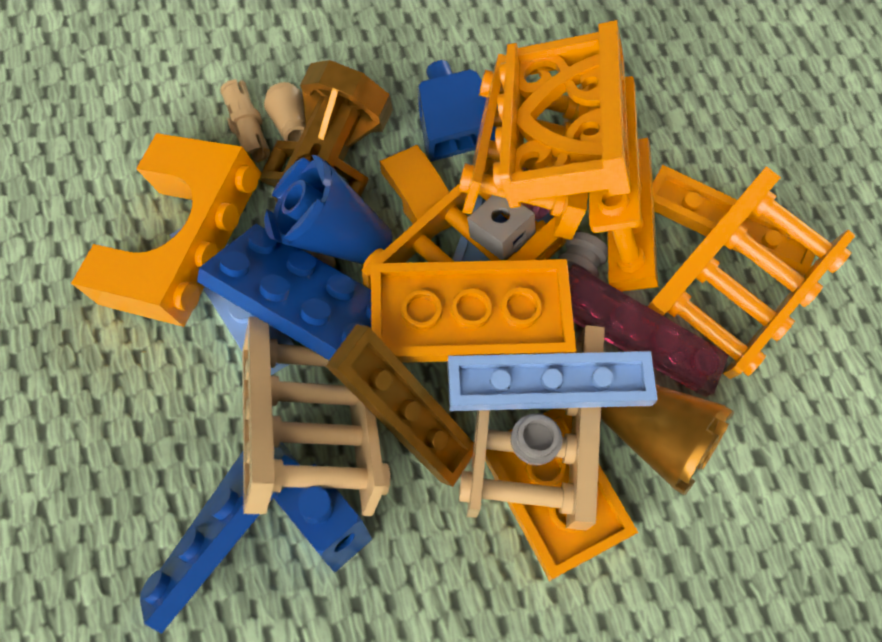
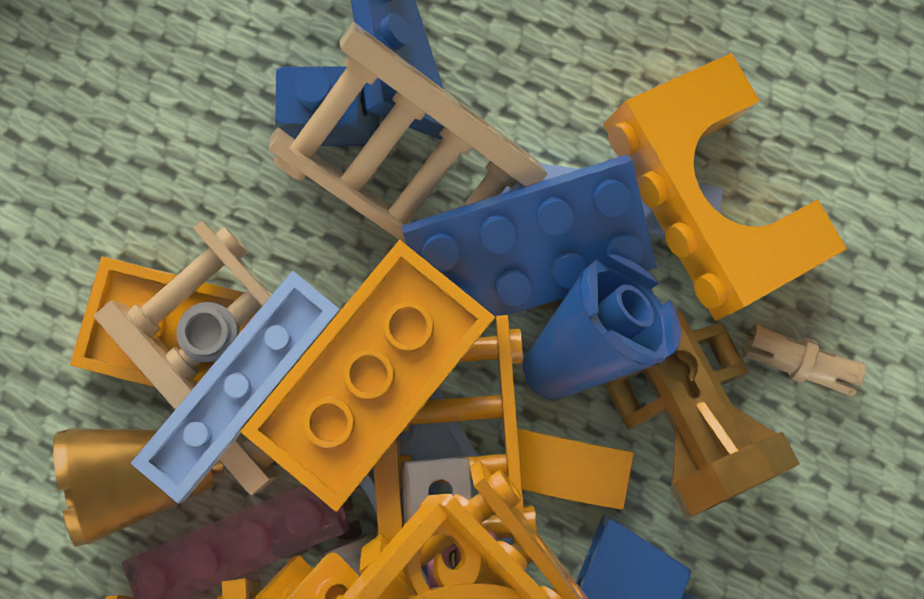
camera: 140 degrees right, 15 degrees up
(286, 110) = (775, 407): tan cone -> none
(401, 404) = (345, 234): pearl gold plate -> none

